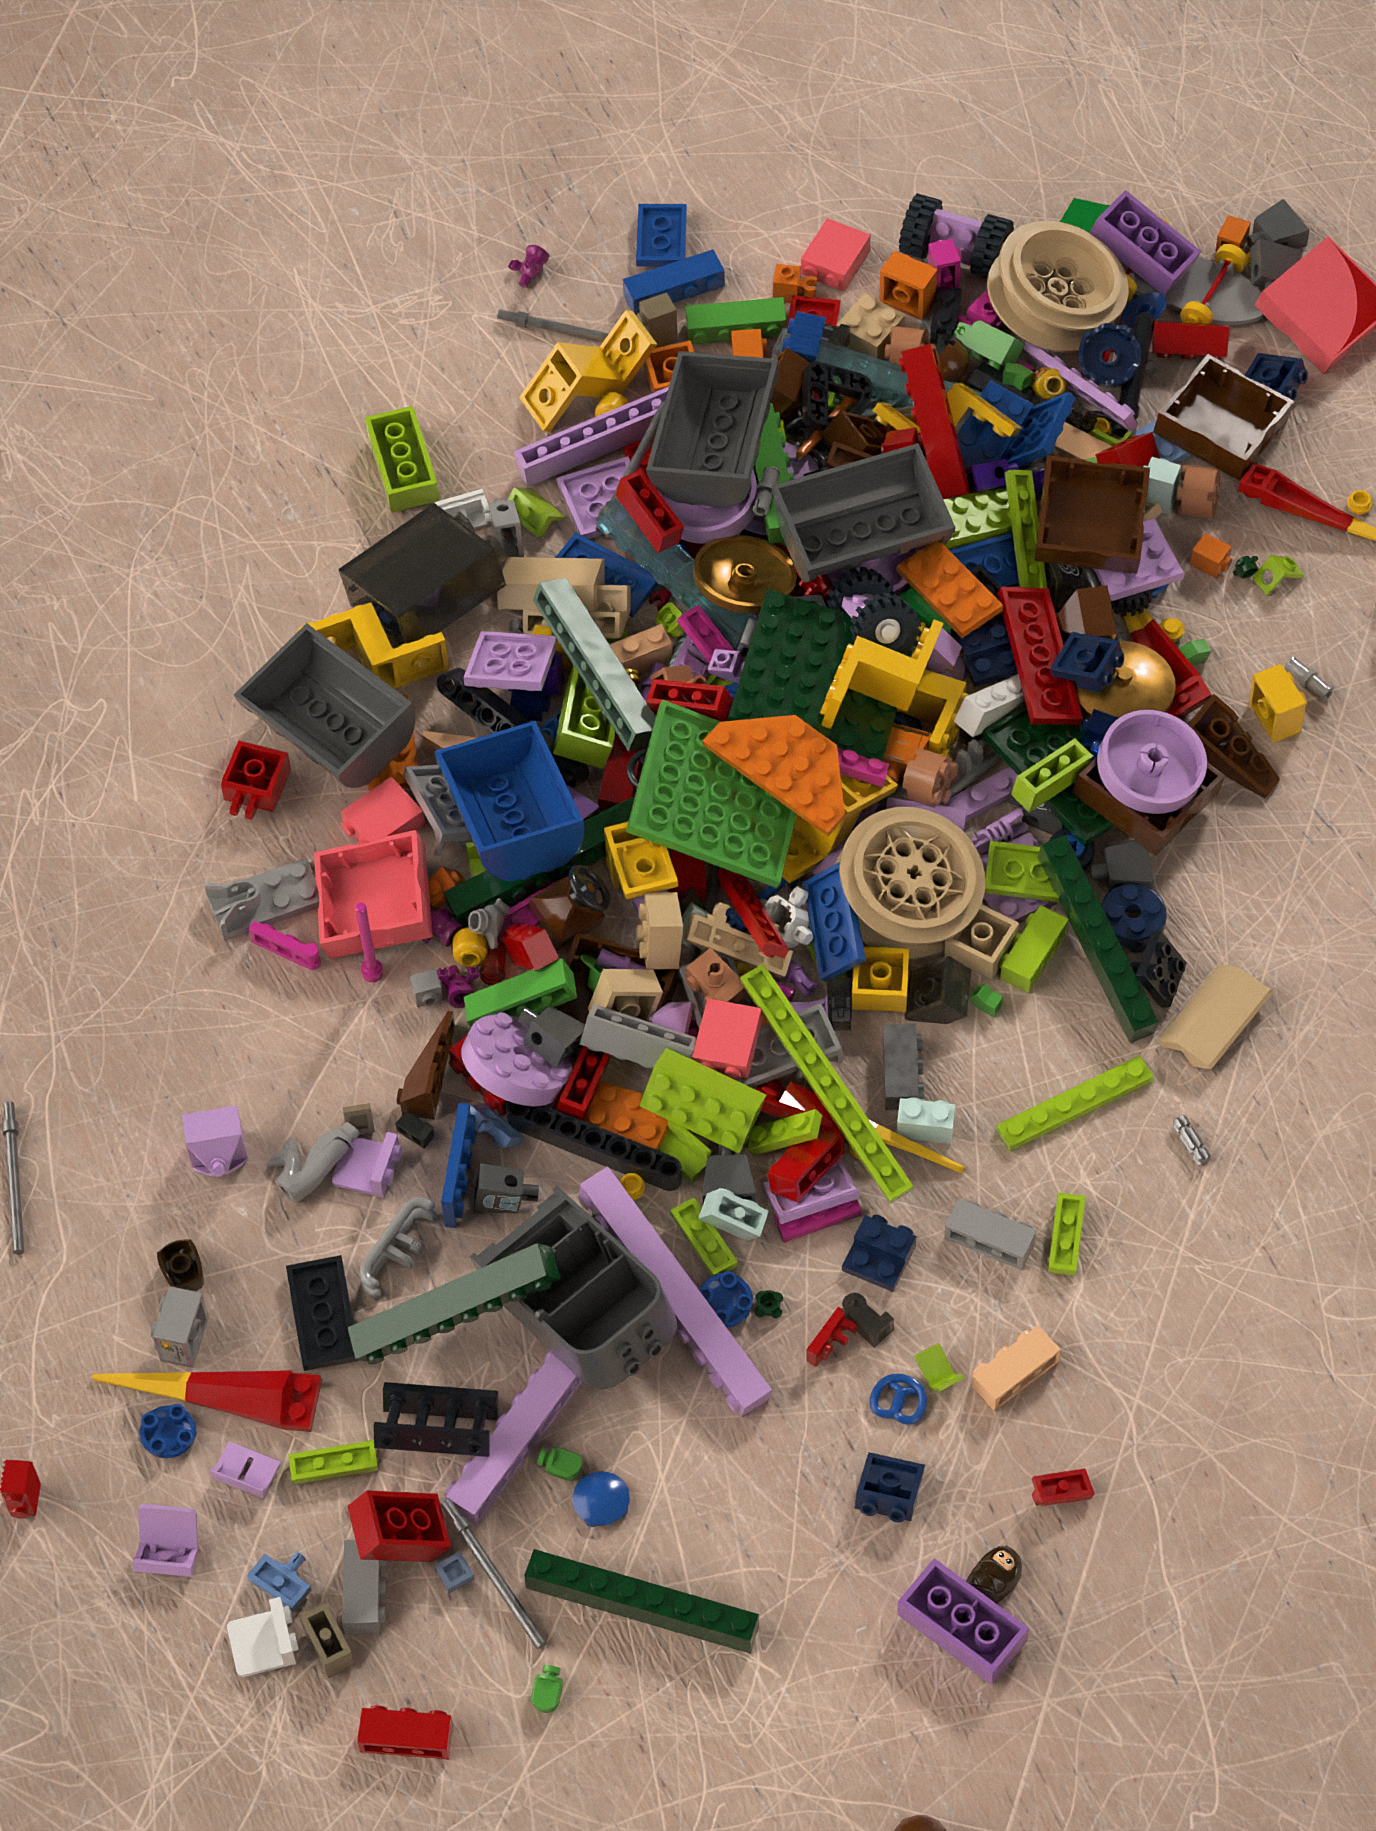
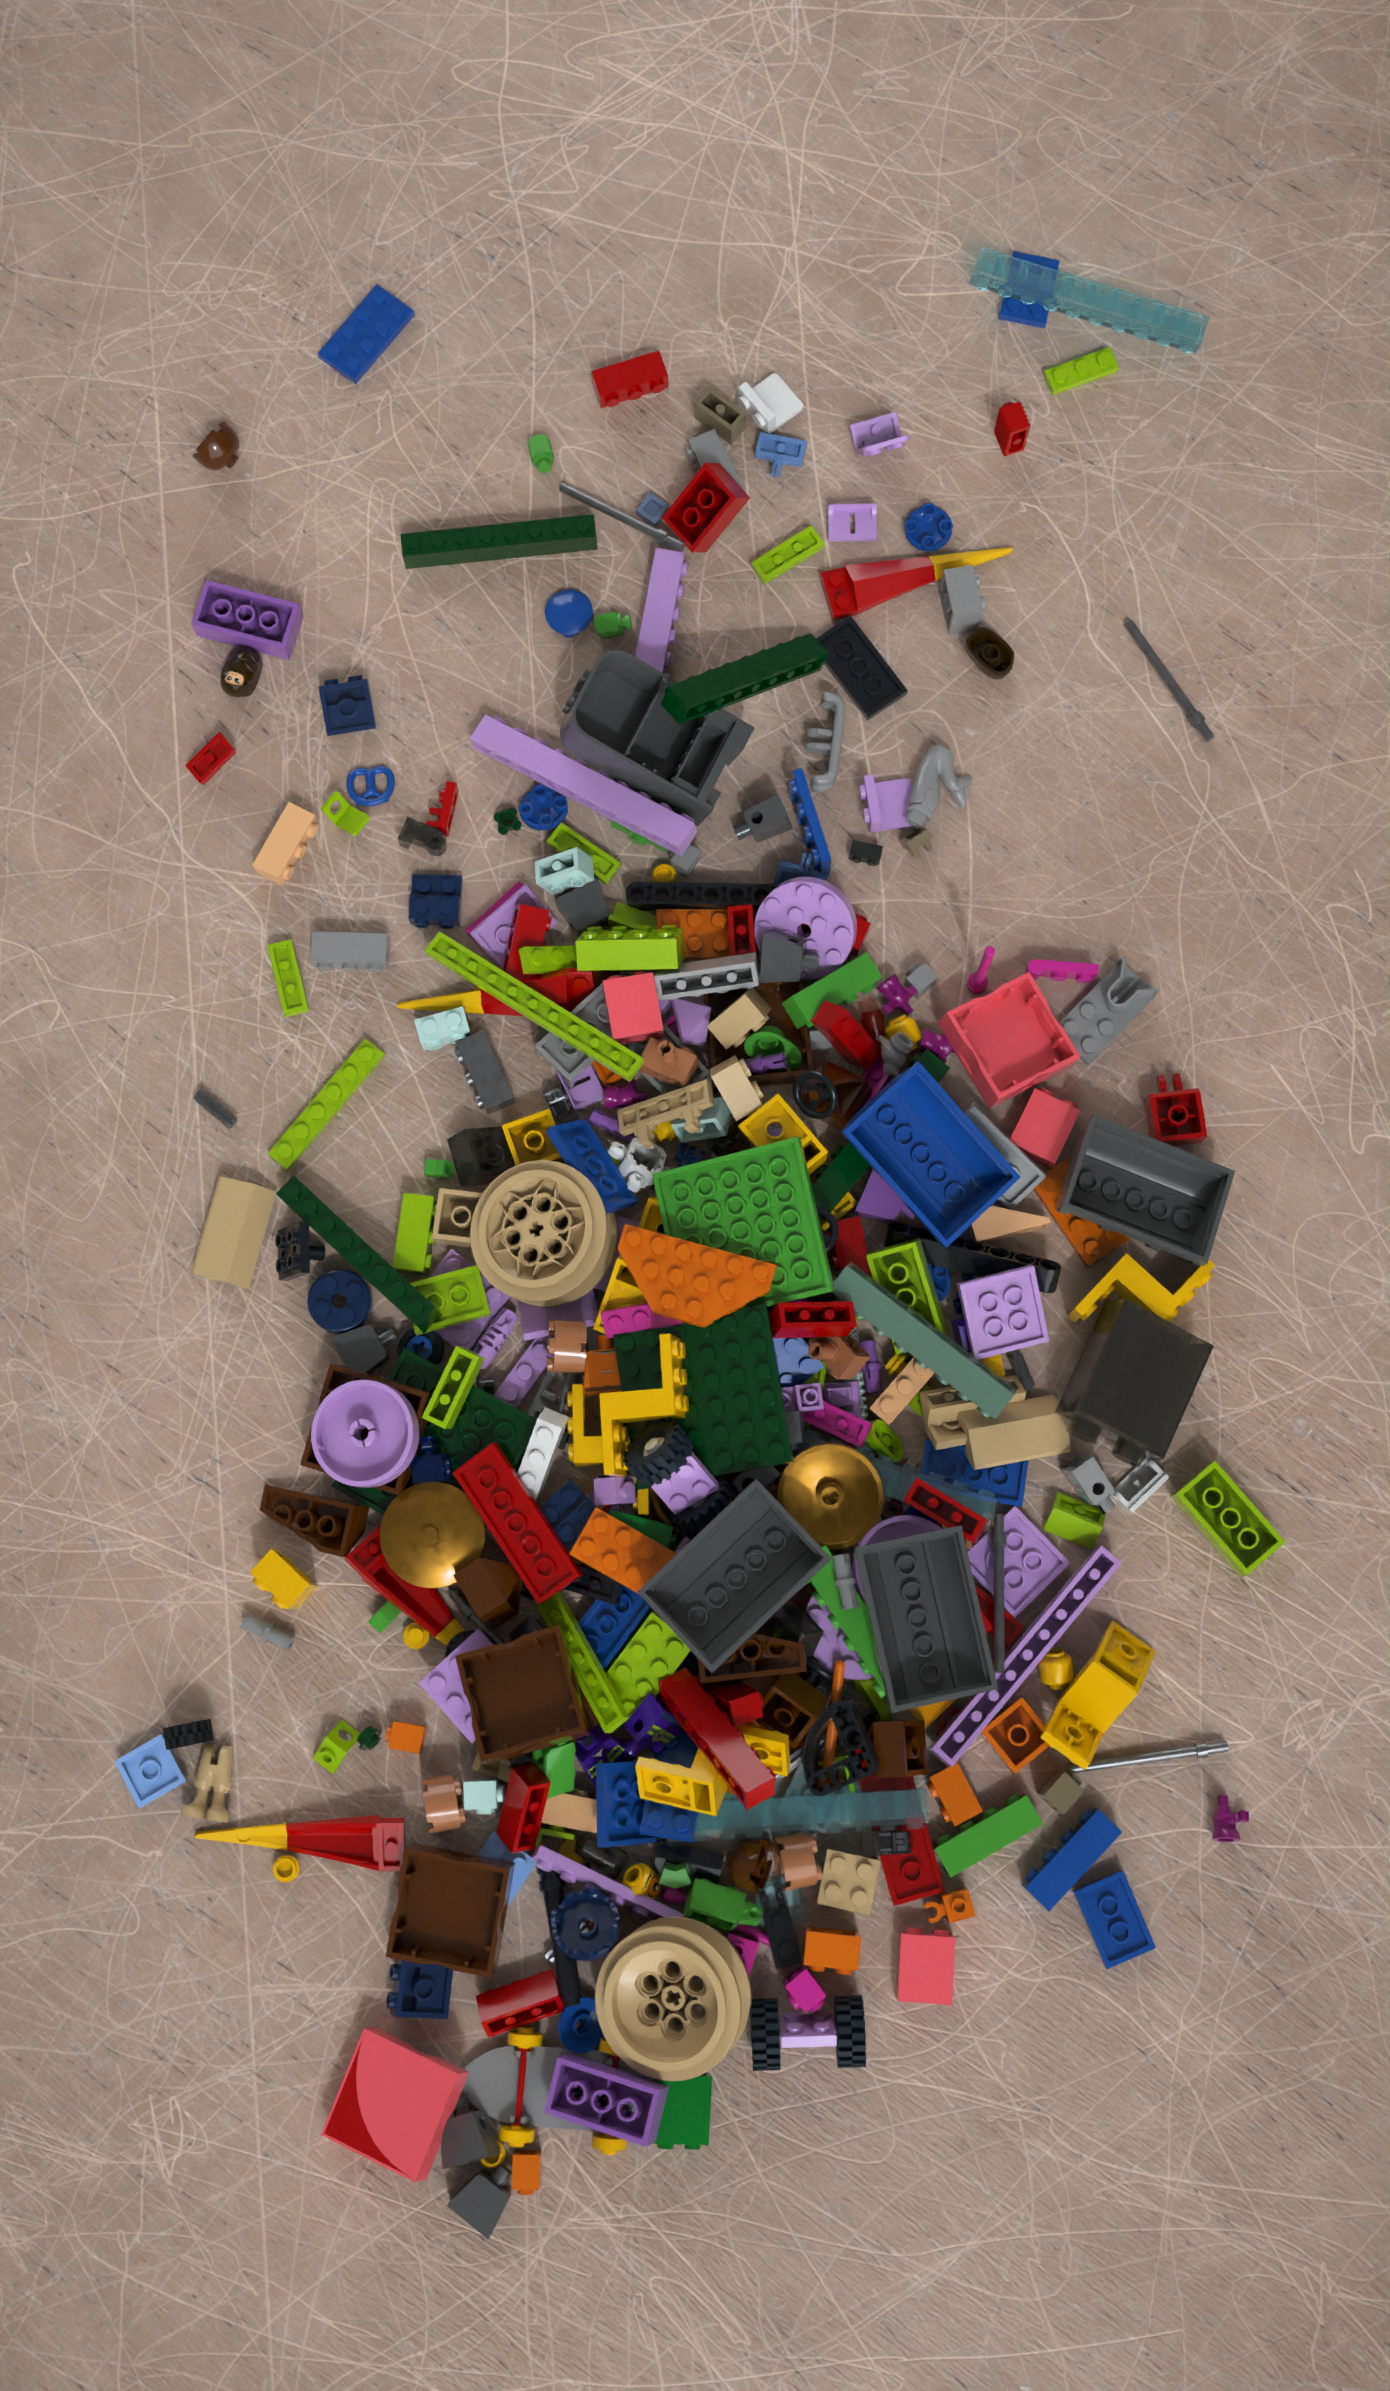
camera: 155 degrees right, 20 degrees up
(215, 1140) = (1018, 760): lavender piece -> none
(425, 1079) = (877, 890): reddish brown wedge -> none
(436, 1401) = (715, 631): black fence -> none
(442, 881) = (956, 1083): orange bracket -> none
(752, 913) = (652, 1125): red plate -> none
(805, 335) = (896, 1808): blue brick -> none
(1088, 661) = (466, 1527): dark blue plate -> none

